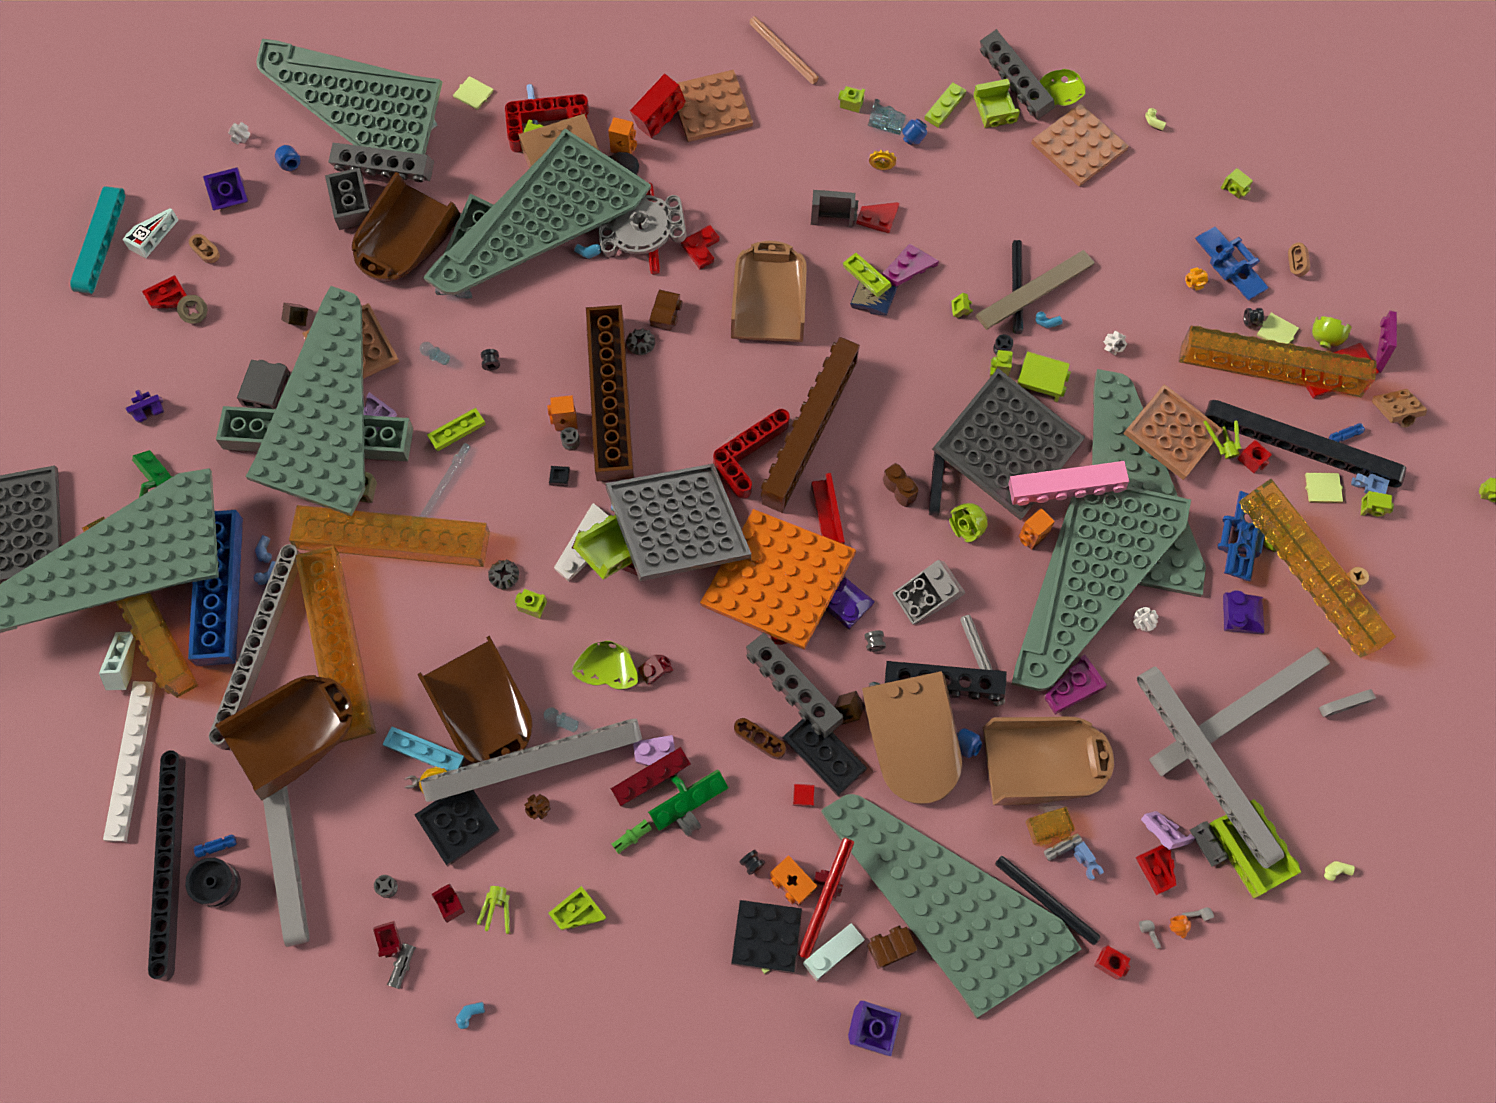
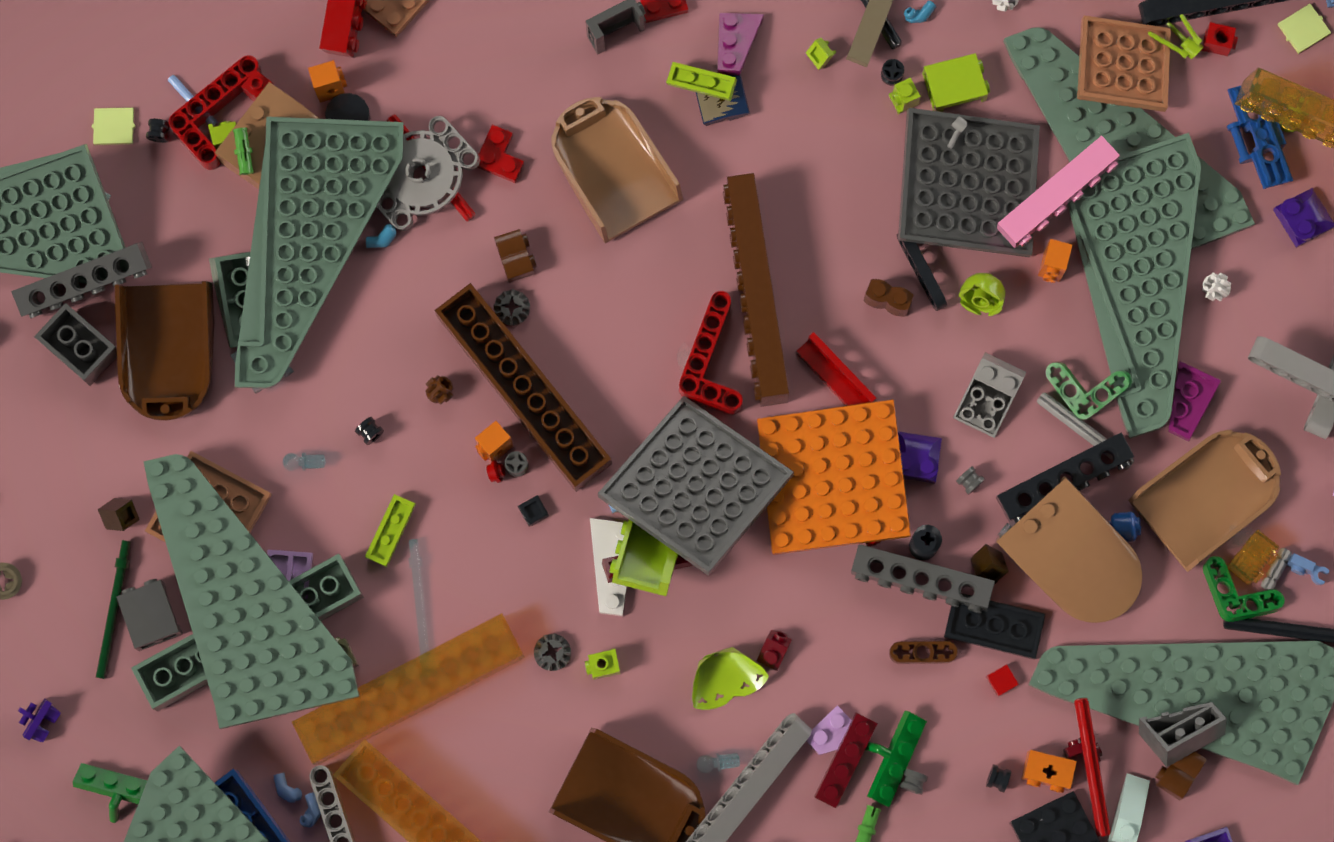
camera: 30 degrees left, 10 degrees up
(272, 346) = (121, 566): none -> dark green bar
(496, 108) = (158, 130): none -> black wheel
(540, 131) = (243, 151): none -> bright green pin
(552, 435) = (495, 471): none -> red plate
(554, 361) = (439, 389): none -> reddish brown gear
(812, 660) = (933, 538): none -> black piece
(911, 916) = (1182, 732): none -> dark grey wedge
(995, 633) = (1081, 395): none -> green beam
(1015, 847) = (1232, 599): none -> green beam
(1026, 400) = (959, 124): none -> light grey hand

